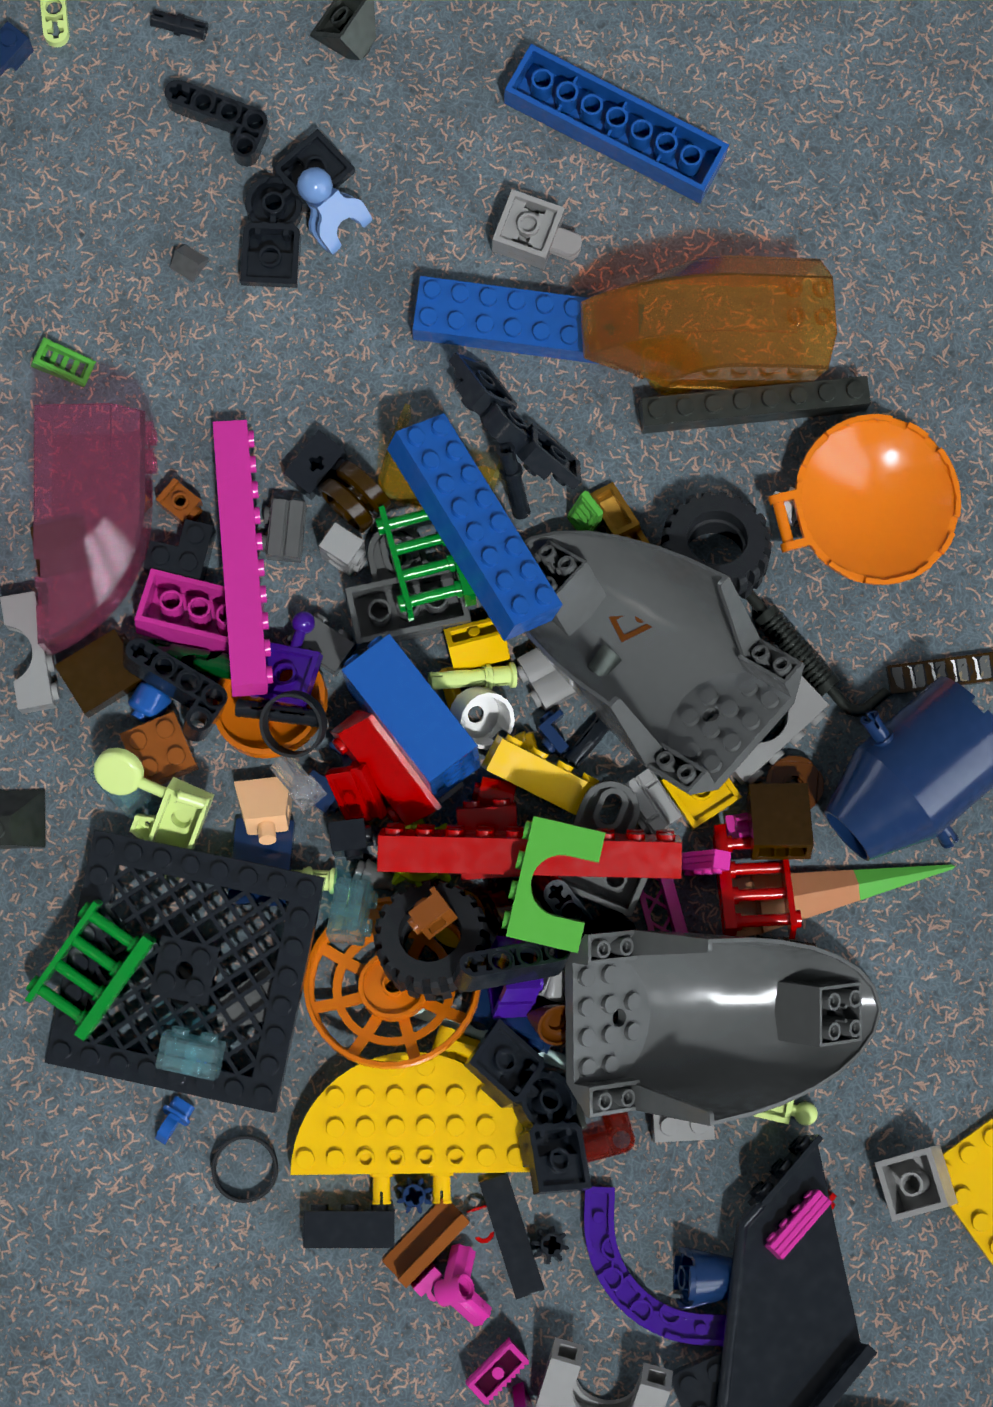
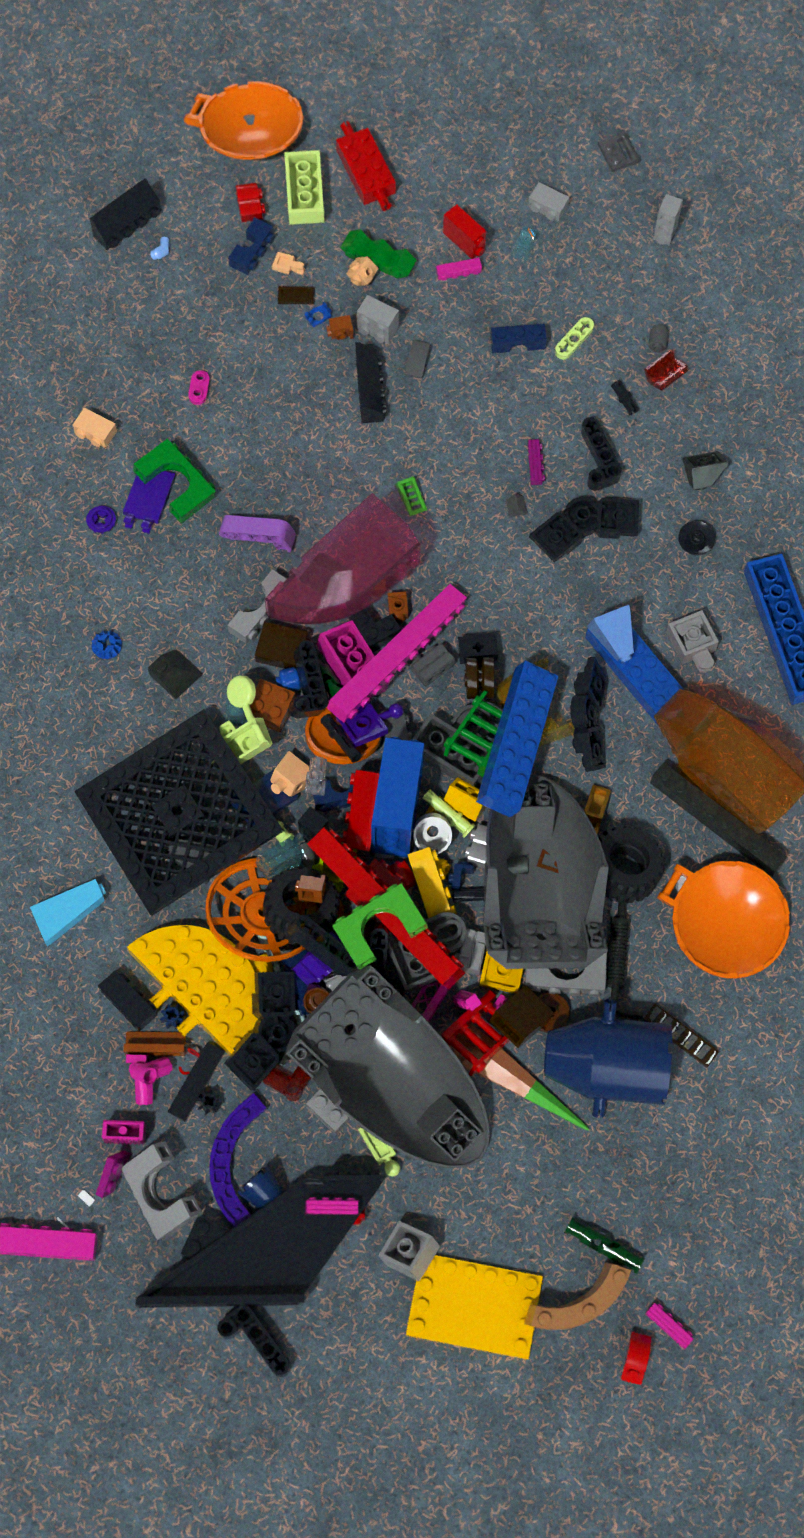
camera: 50 degrees right, 10 degrees down
(118, 970) = (148, 781): green fence -> none
(156, 191) = (535, 459): none -> magenta piece
(176, 1207) = (65, 910): none -> medium azure slope
(178, 1112) = (107, 872): blue piece -> none
(191, 1053) = (140, 847): clear light blue brick -> none
(214, 1174) = (103, 909): black tyre -> none
(273, 744) = (324, 740): black tyre -> none
(328, 207) = (606, 539): medium blue piece -> none
(343, 550) = (449, 696): light grey brick -> none
(356, 792) = (338, 807): red plate -> none
(416, 100) = (697, 530): none -> black dish
(452, 304) = (615, 632): none -> medium blue slope
(511, 473) = (563, 735): black pin -> none
(585, 513) = (580, 790): bright green slope -> none

